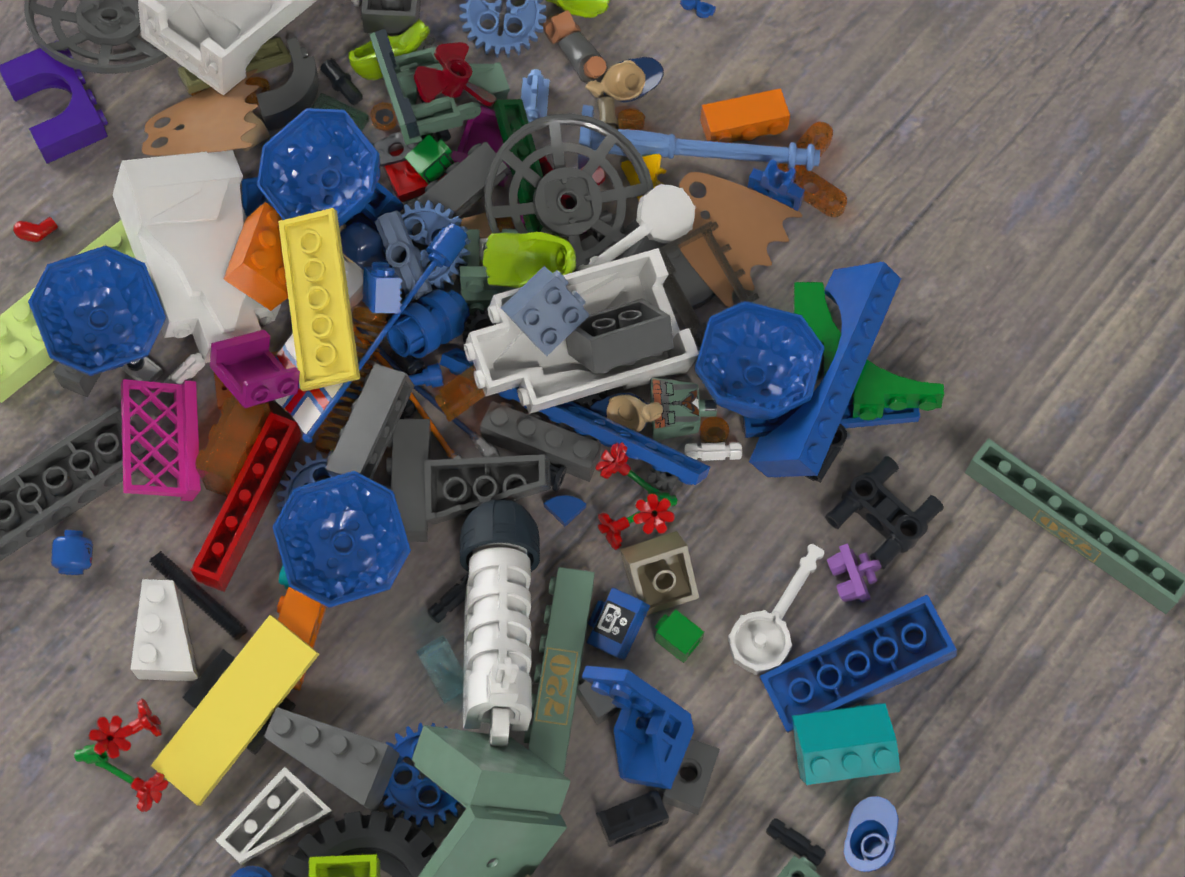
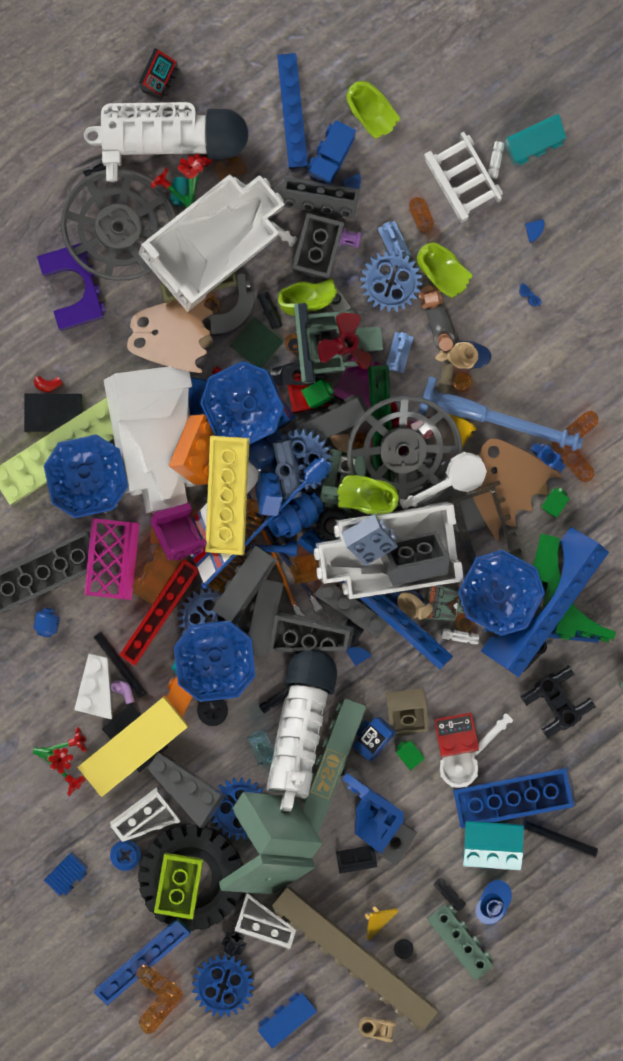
camera: 15 degrees right, 20 degrees up
(27, 261) = (50, 410): none -> black tile
(187, 369) = (133, 515): white axle -> none
(209, 630) = (123, 688): none -> lavender arm
(342, 630) = (207, 718): none -> black gear
(652, 511) = (407, 686): red plant -> none
(743, 591) = (456, 735): none -> red plate
(745, 117) = (540, 398): orange brick -> none
(802, 244) = (555, 502): none -> green brick
(847, 561) = (529, 736): medium lavender hips -> none
(949, 717) = (559, 838): none -> black axle

